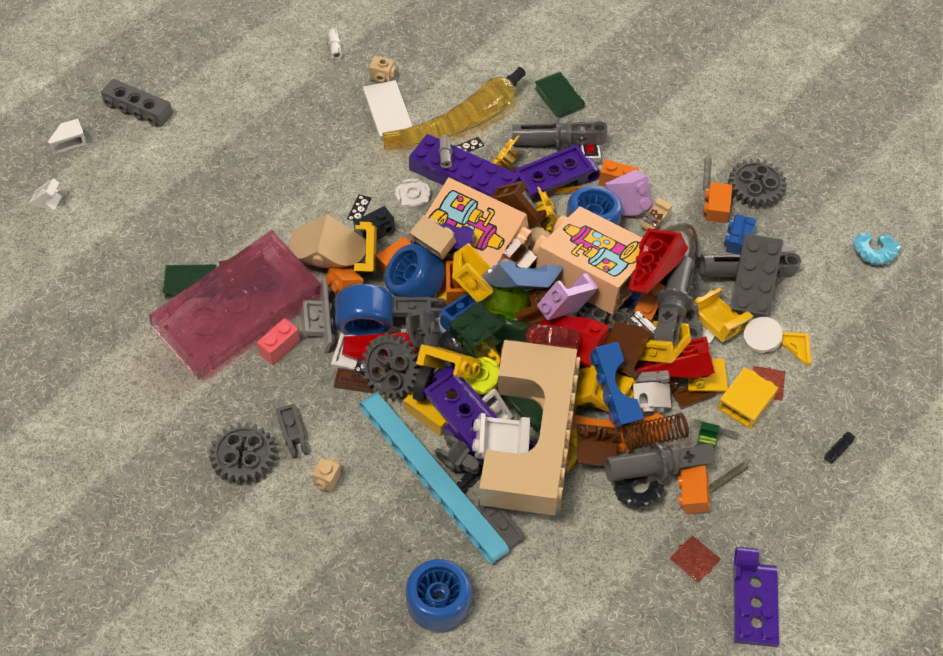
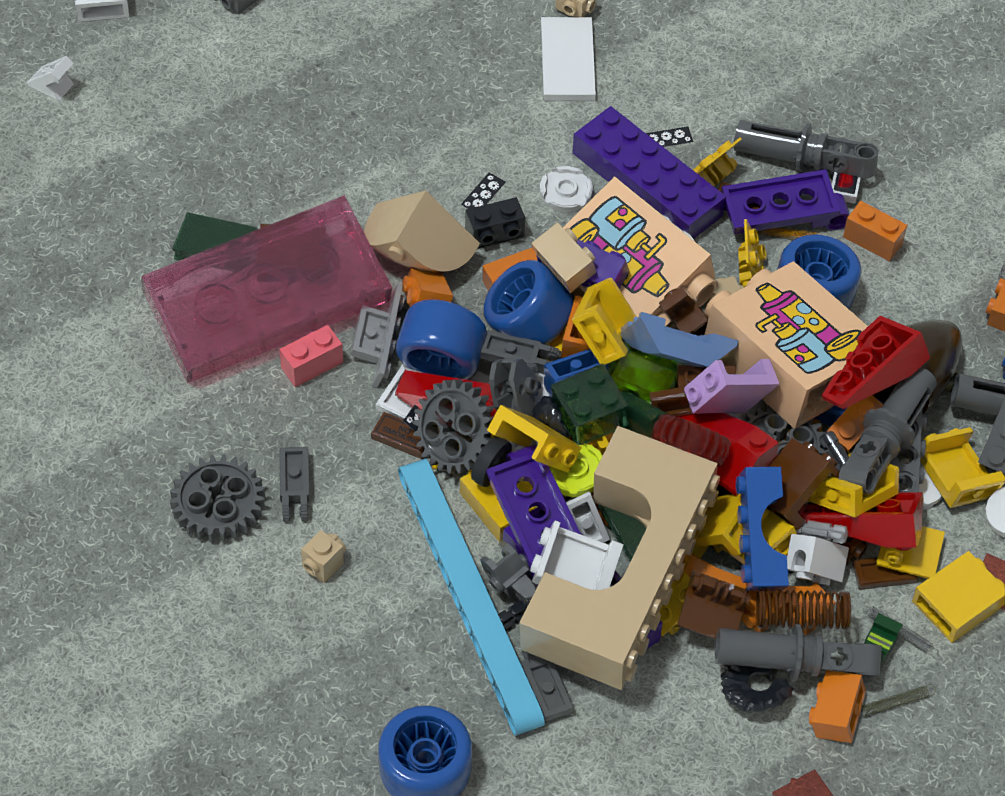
camera: 15 degrees right, 0 degrees up
(371, 239) = (477, 252): yellow panel -> none
(445, 152) = (626, 138): light grey axle -> none
(477, 109) = (690, 88): clear yellow animal -> none
(513, 196) = (700, 226): reddish brown panel -> none
(559, 95) = (826, 91): clear green piece -> none
(633, 192) = (883, 259): lavender slope -> none
(657, 215) = (914, 301): tan leg -> none

